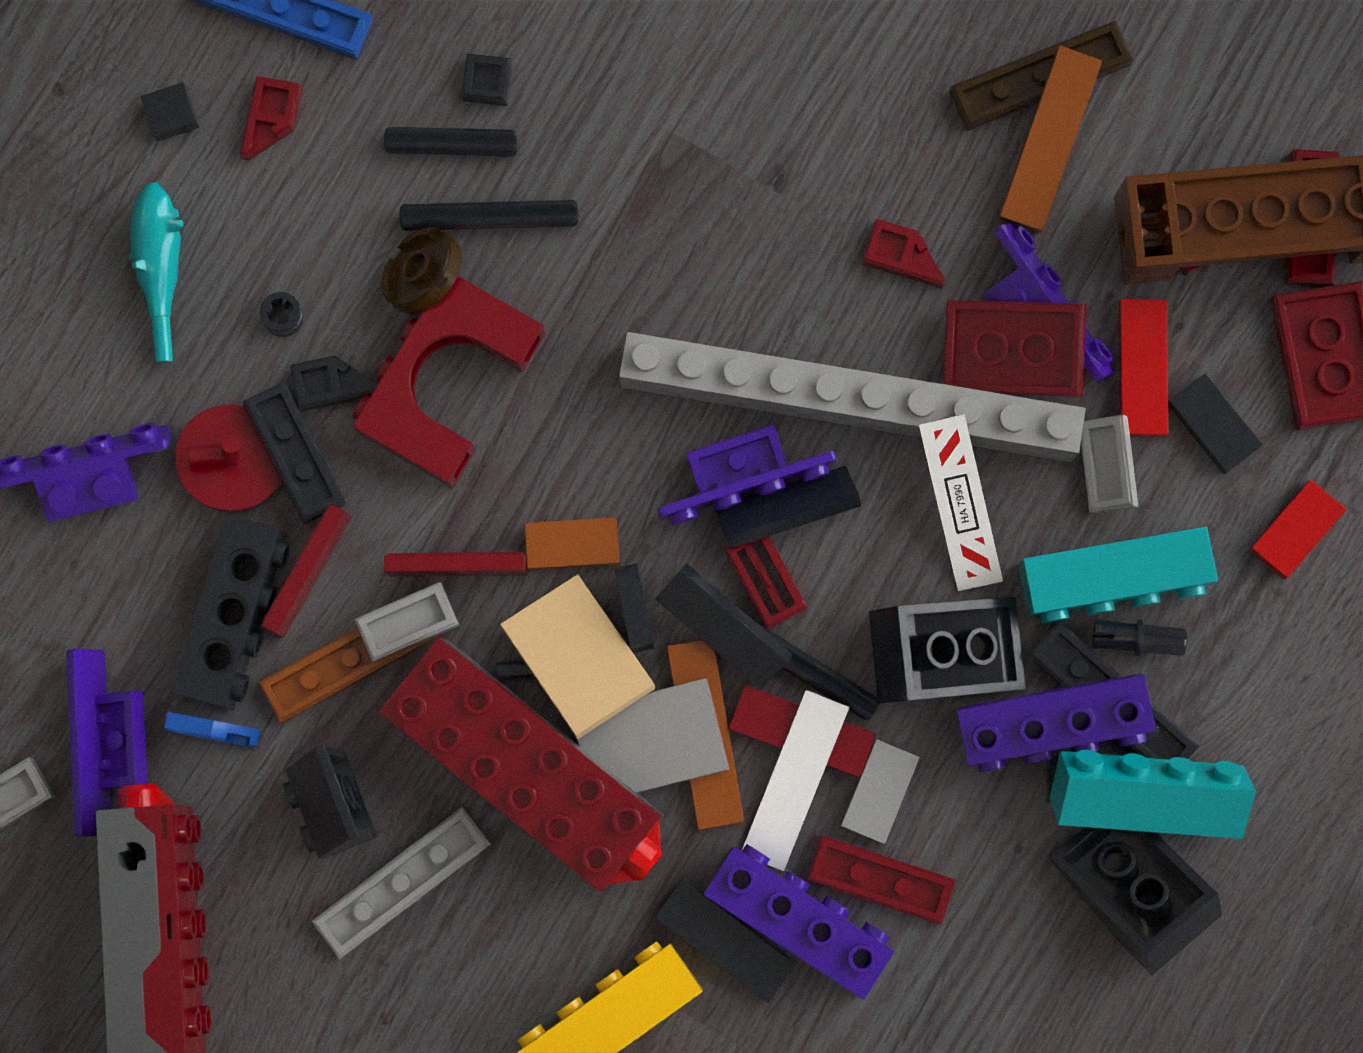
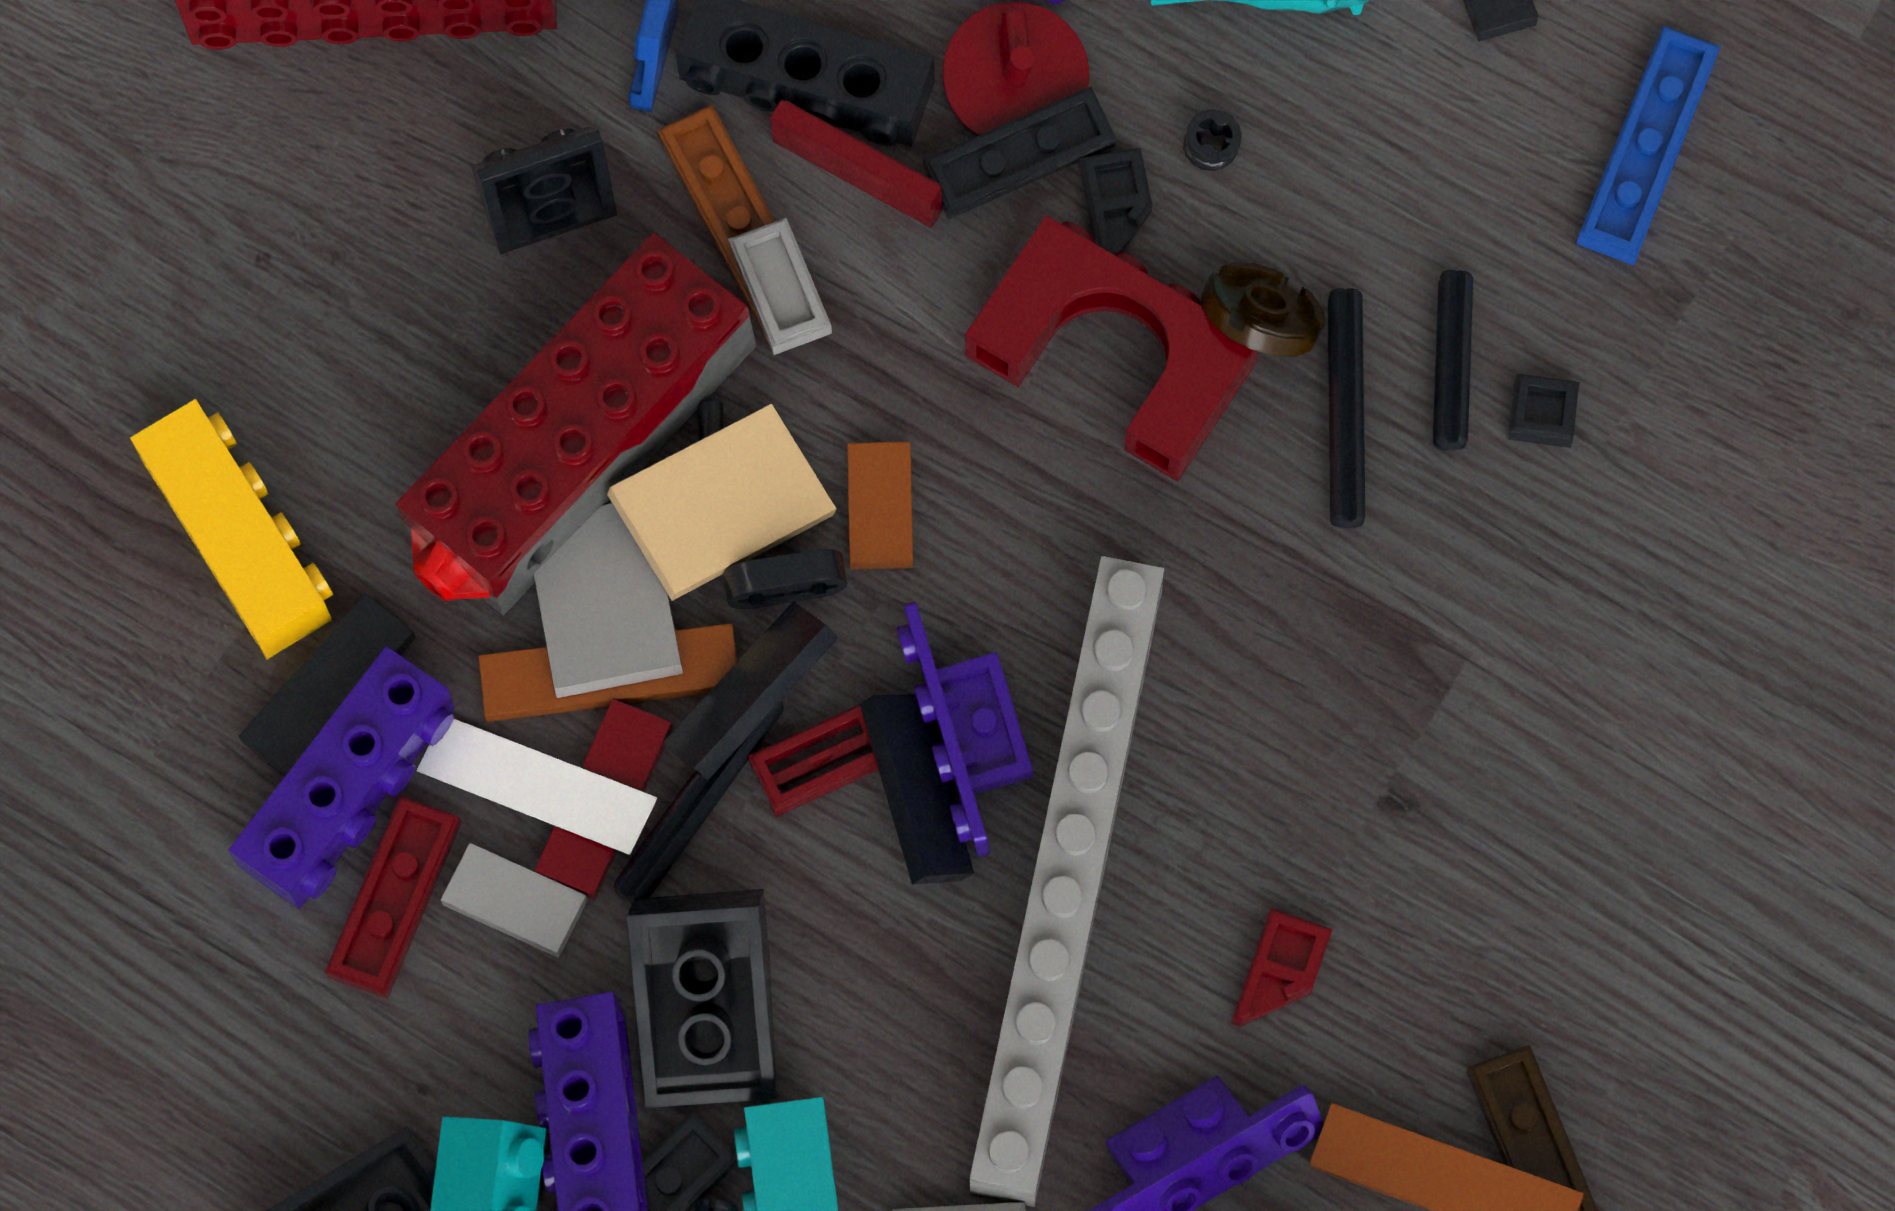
camera: 90 degrees right, 10 degrees down
(270, 115) = (1493, 129): dark red tile -> none
(401, 883) = (437, 280): light grey tile -> none
(456, 564) = (856, 348): dark red tile -> none
(961, 502) = (909, 1018): white sticker -> none
(1015, 347) = (1130, 1105): dark red tile -> none

